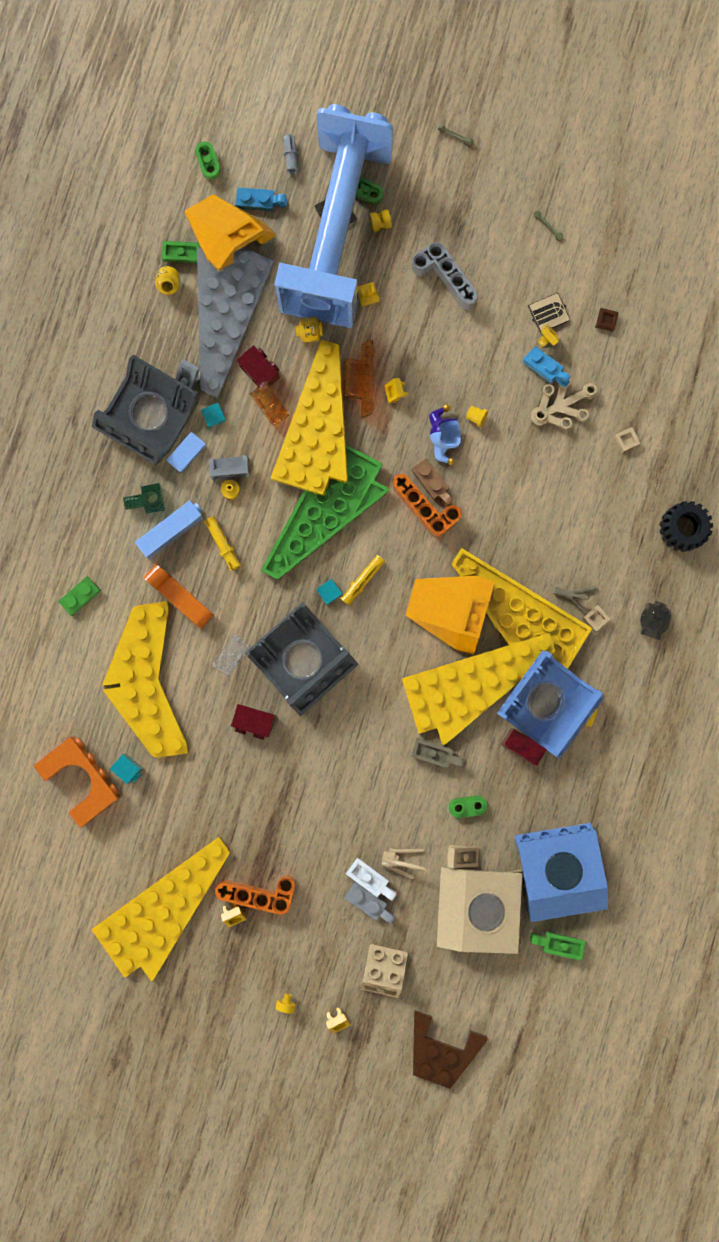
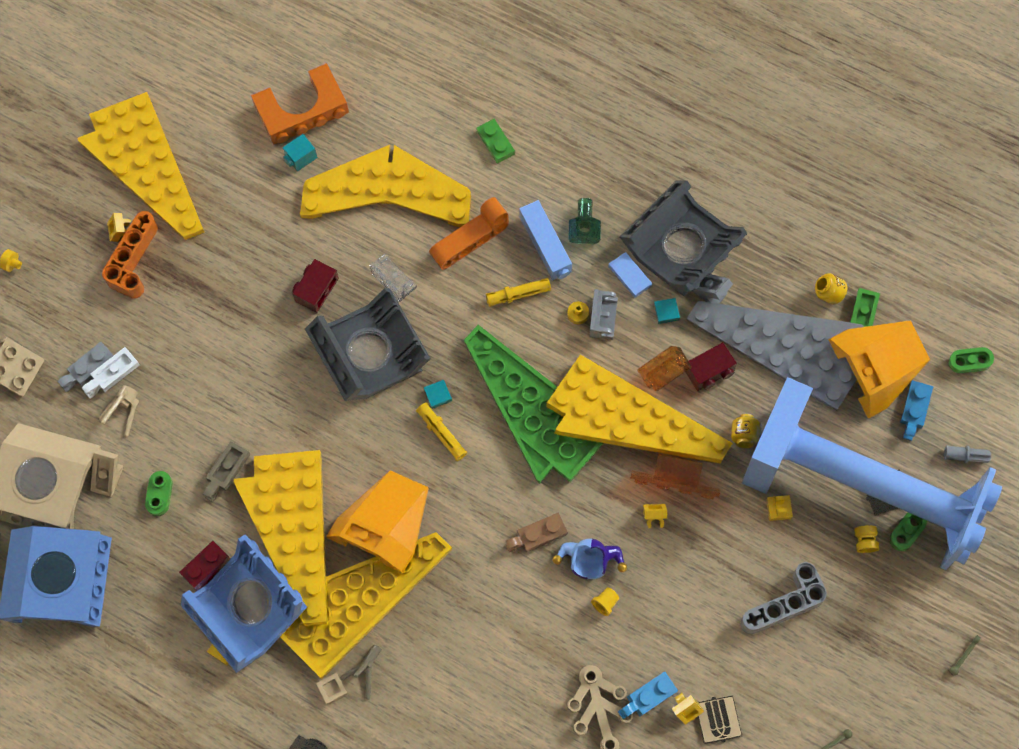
camera: 105 degrees right, 15 degrees down
(423, 503) = (509, 506): orange beam -> none

